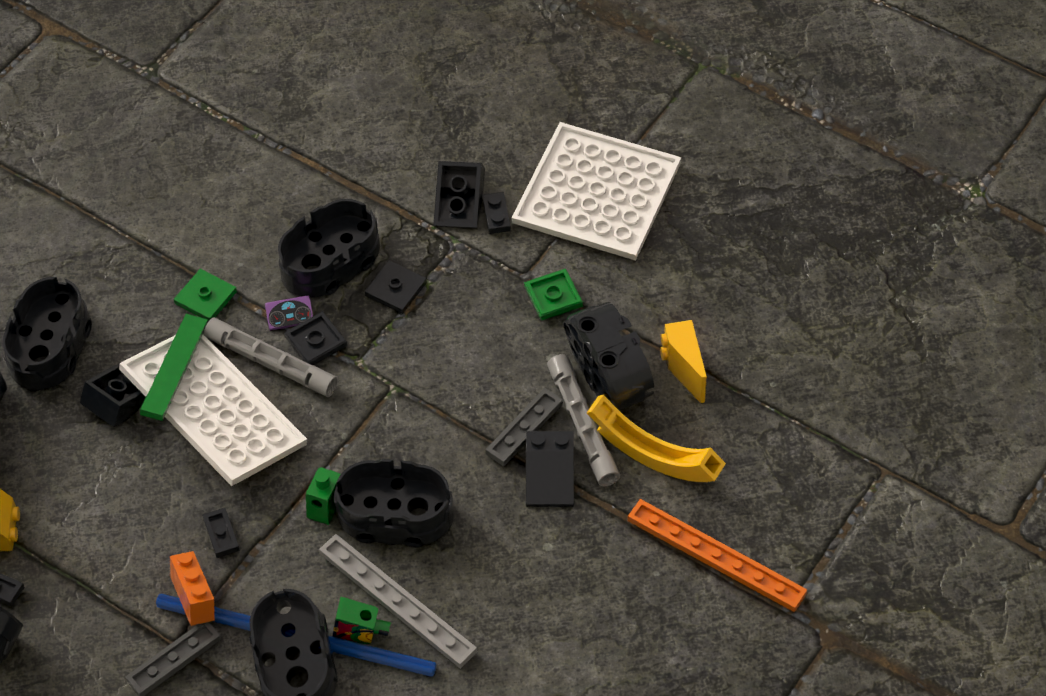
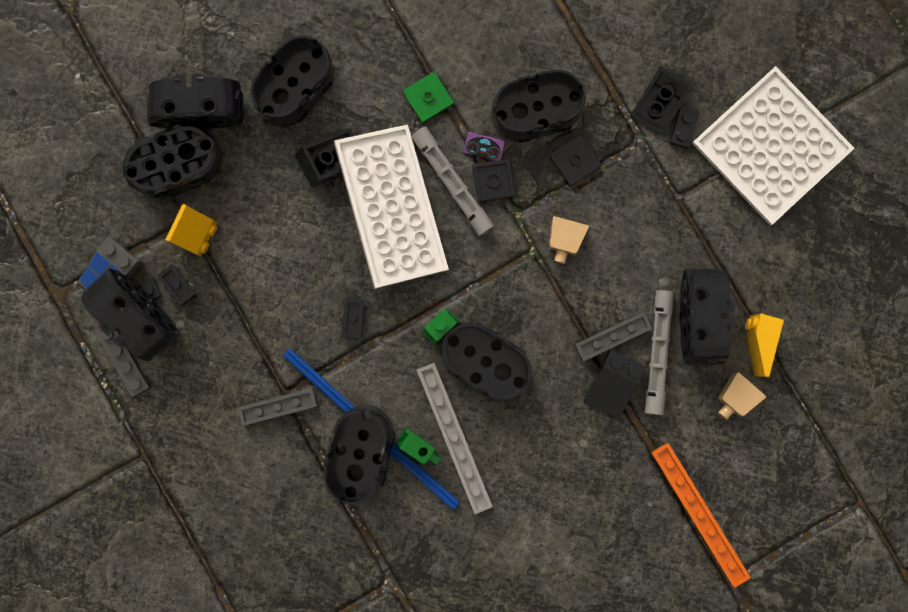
camera: 25 degrees right, 30 degrees up
(173, 367) = (374, 162): green tile -> none
(192, 588) = (311, 362): orange brick -> none
(422, 356) = (565, 237): none -> tan torso
(553, 294) = (691, 227): green plate -> none
(661, 456) = (700, 410): yellow arch -> none
(693, 422) = (739, 396): none -> tan torso

